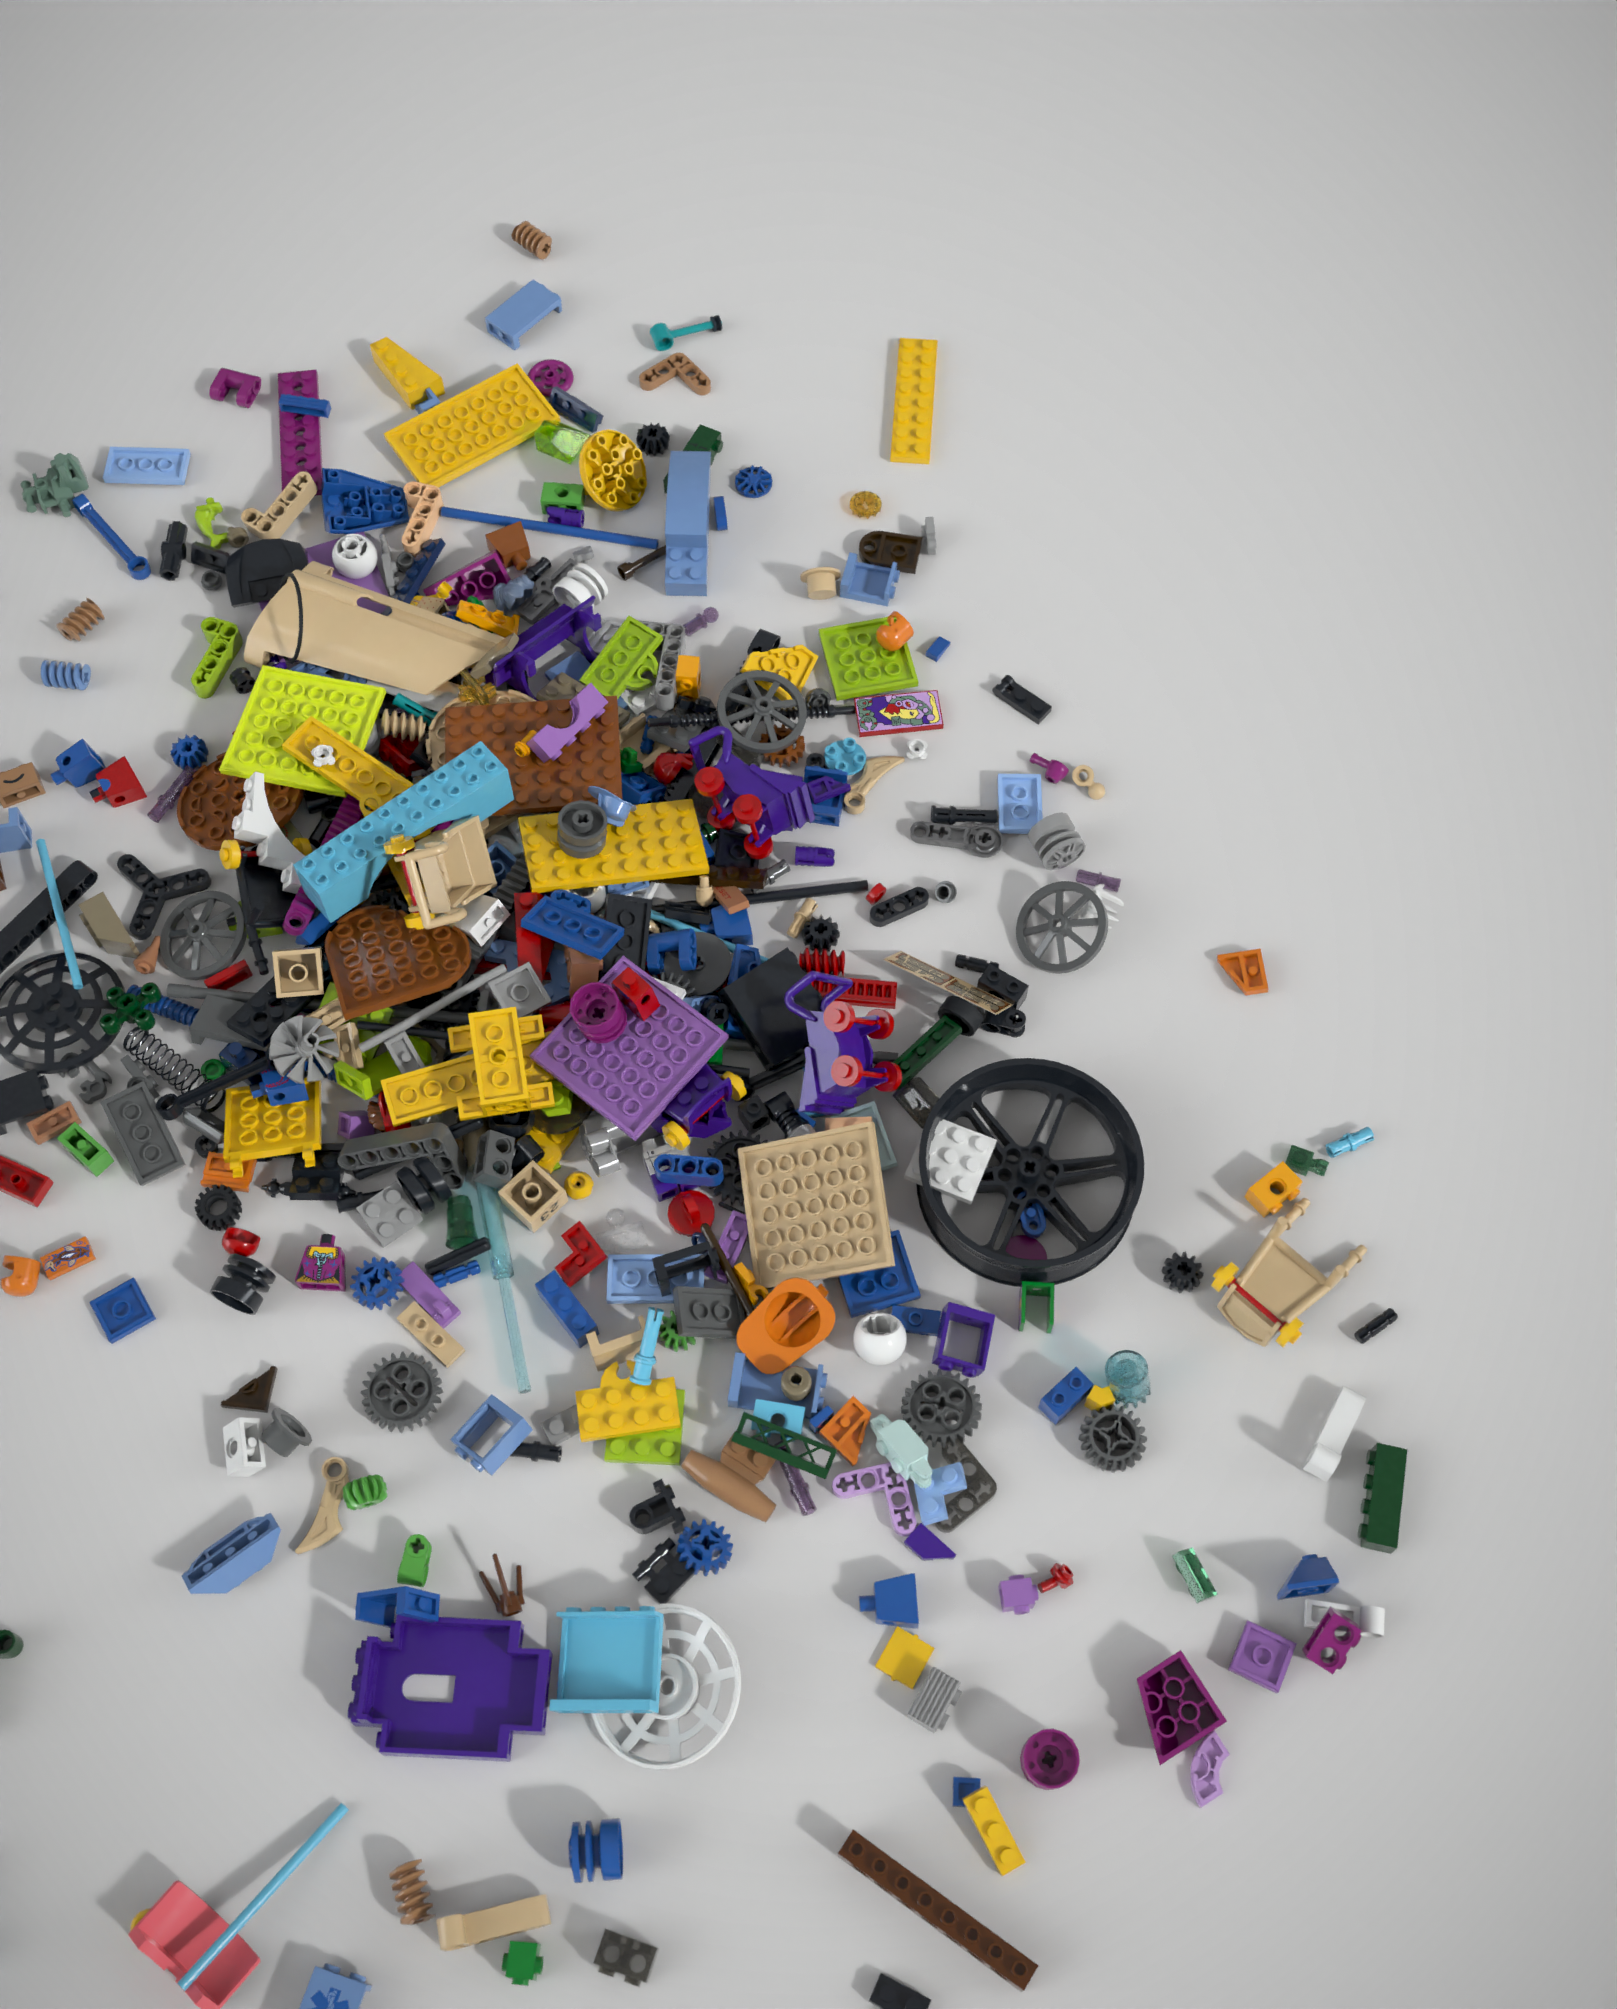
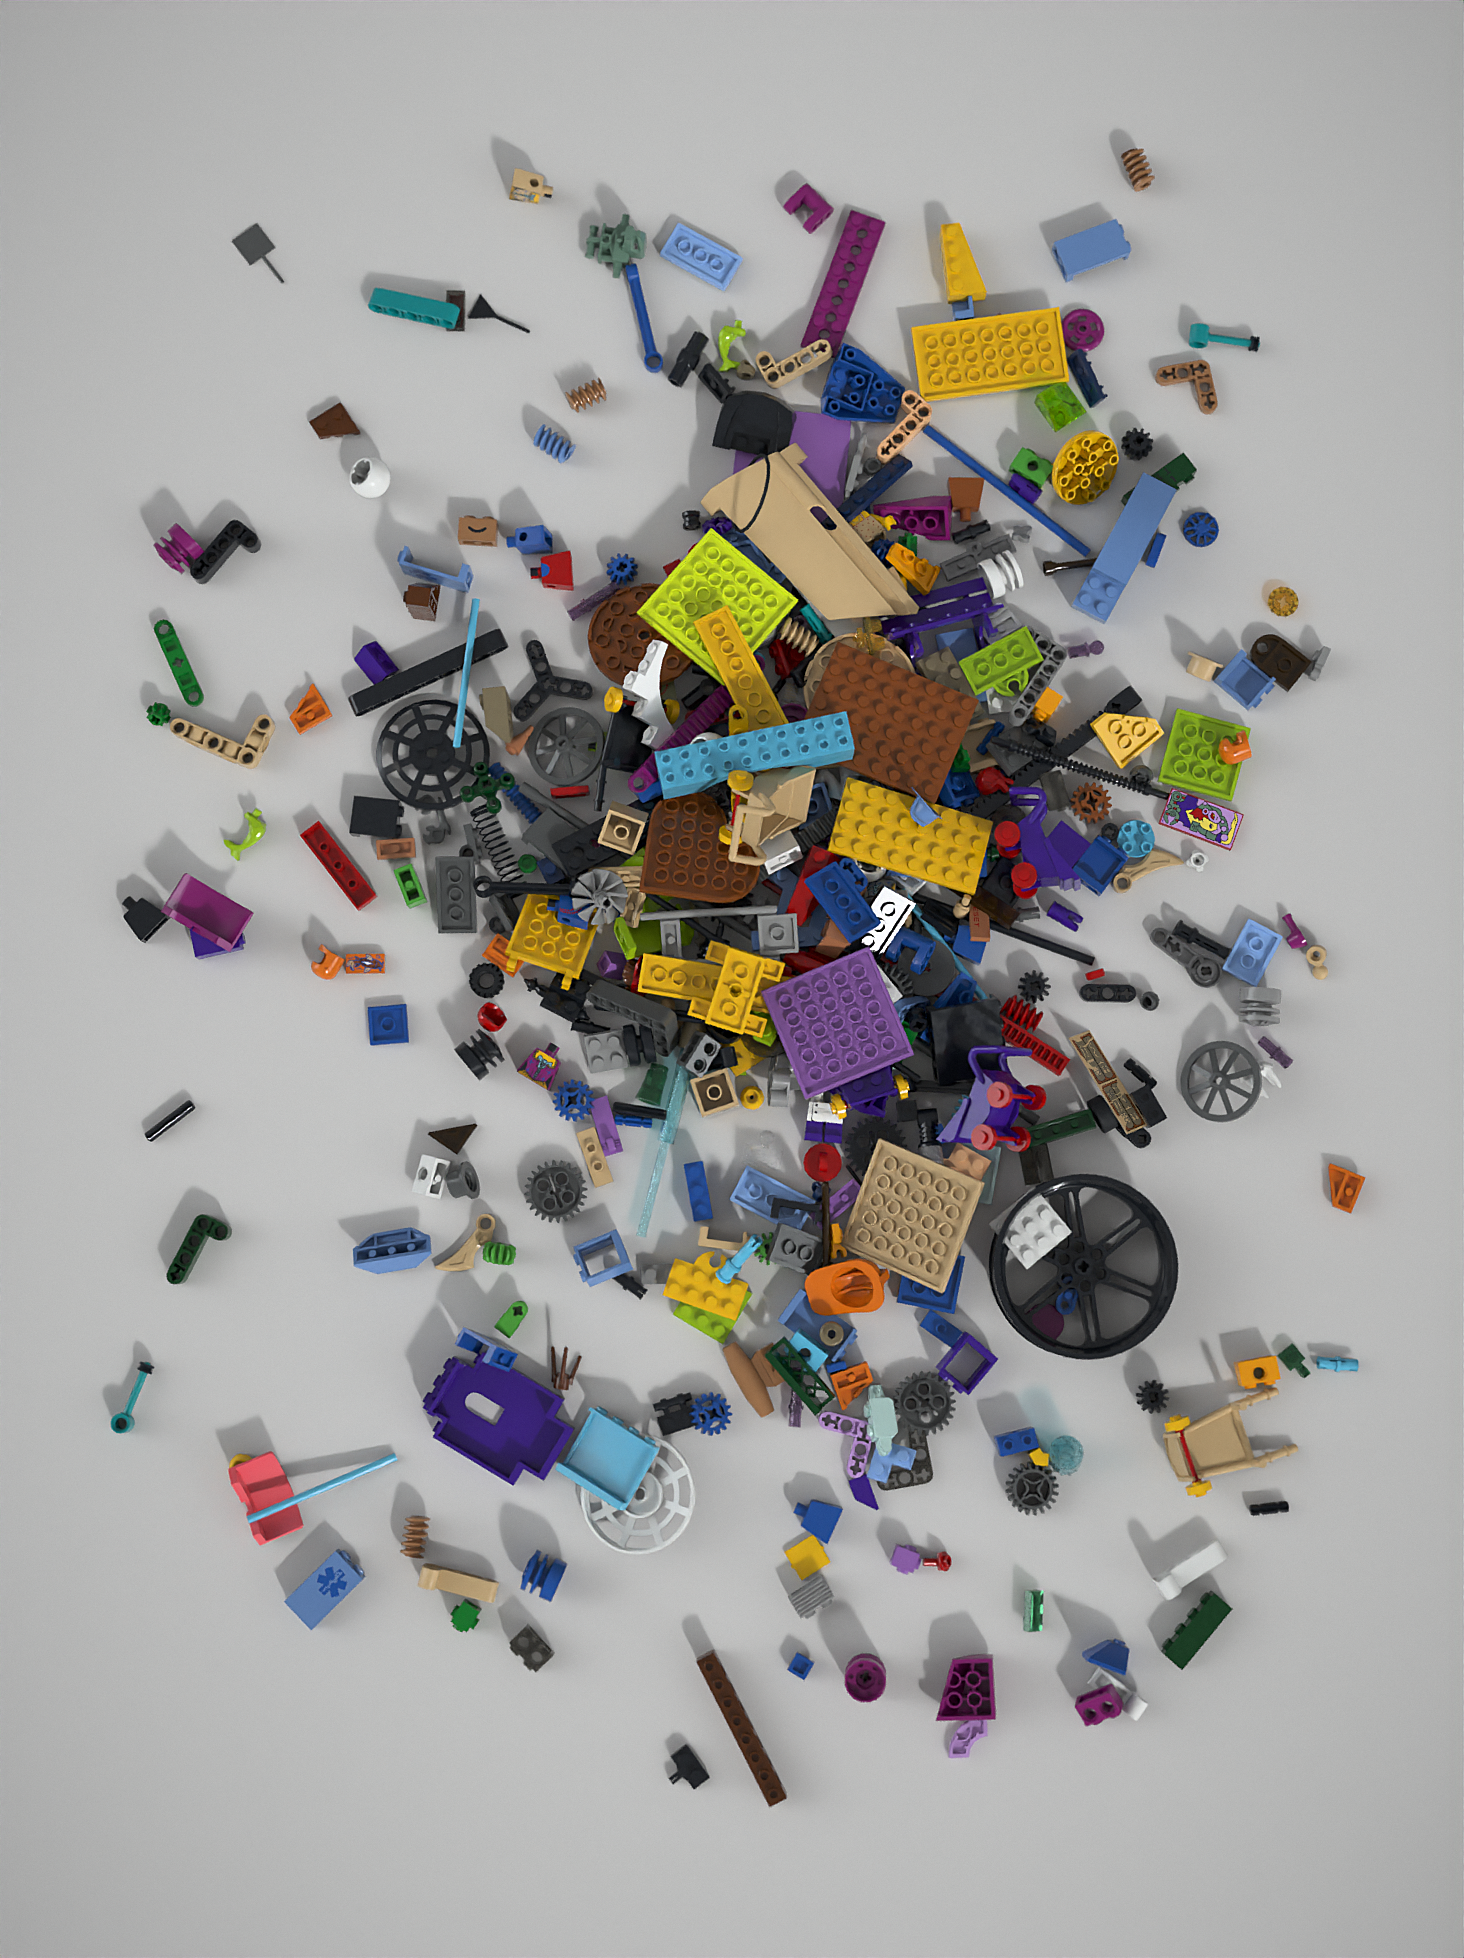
camera: 30 degrees right, 20 degrees up
(211, 580) = (706, 405): dark grey plate -> none
(224, 645) = (676, 487): lime beam -> none
(304, 405) = (858, 262): blue piece -> none
(323, 750) = (725, 646): white plate -> none
(354, 556) = (827, 434): white wheel -> none
(498, 652) = (896, 620): dark tan tile -> none
(513, 593) = (943, 547): sand blue hair -> none
(521, 747) = (886, 714): light orange pin -> none
(582, 829) = (901, 819): dark grey wheel -> none
(584, 706) = (947, 706): medium lavender arch -> none
(585, 1255) = (732, 1155): red plate -> none
(592, 1003) = (818, 983): magenta wheel -> none
(632, 990) = (861, 989): red torso -> none
(660, 1510) = (692, 1371): black pin -> none
(680, 1162) = (825, 1135): blue beam -> none
(760, 713) = (1083, 771): dark grey wheel -> none
(801, 917) = (1027, 964): tan axle -> none
(826, 788) = (1104, 861): dark purple tile -> none
(880, 1338) = (911, 1335): white wheel -> none
(914, 401) = (1383, 513): yellow plate -> none
(937, 648) = (1266, 773): blue piece -> none
(993, 1830) = (804, 1699): yellow plate -> none
(1022, 699) = (1308, 858): black plate -> none
(1047, 1290) = (1042, 1371): green piece -> none
(1262, 1656) = (1047, 1687): medium lavender plate -> none

